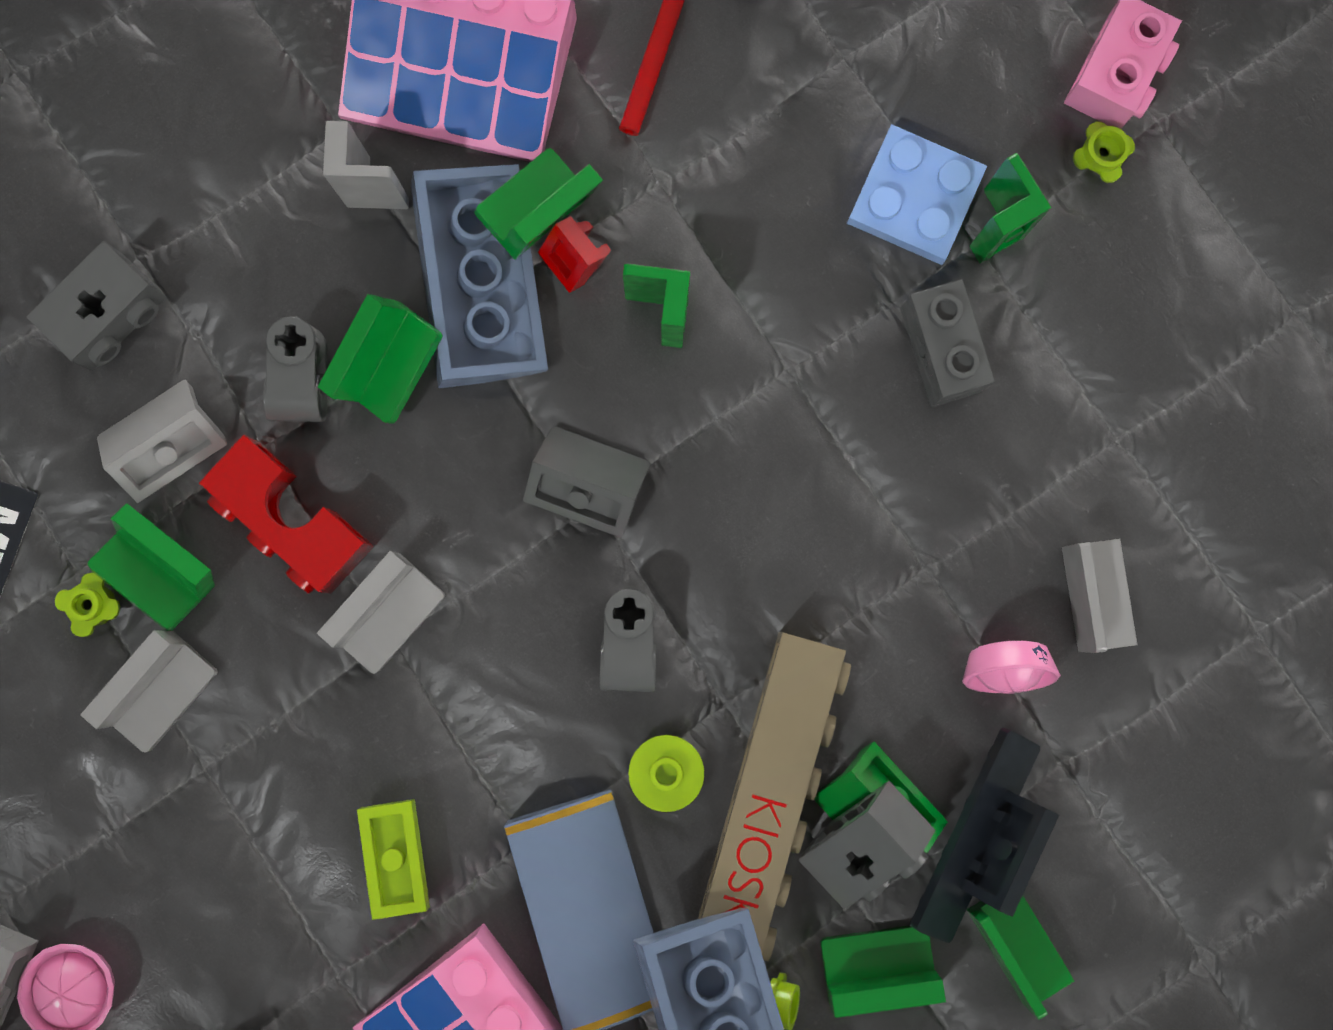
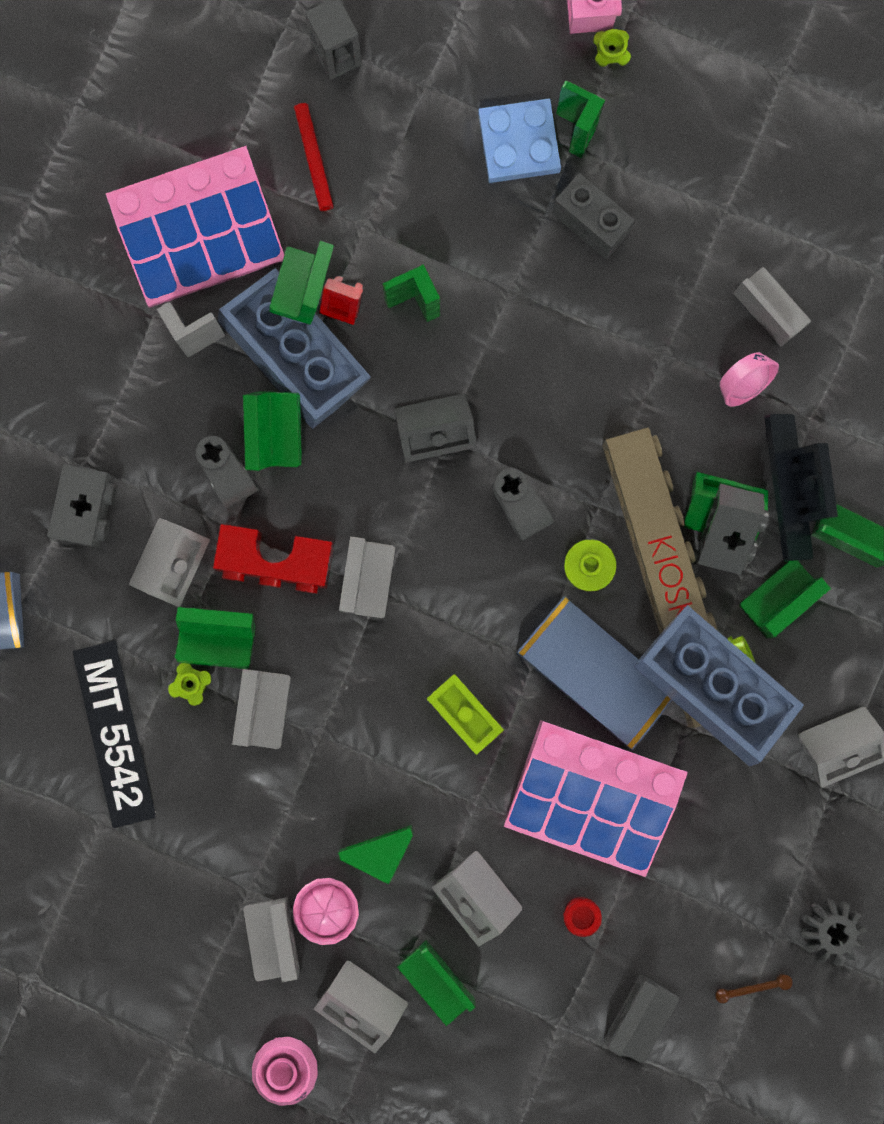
camera: 35 degrees left, 0 degrees up
(173, 963) = (379, 854): none -> green slope

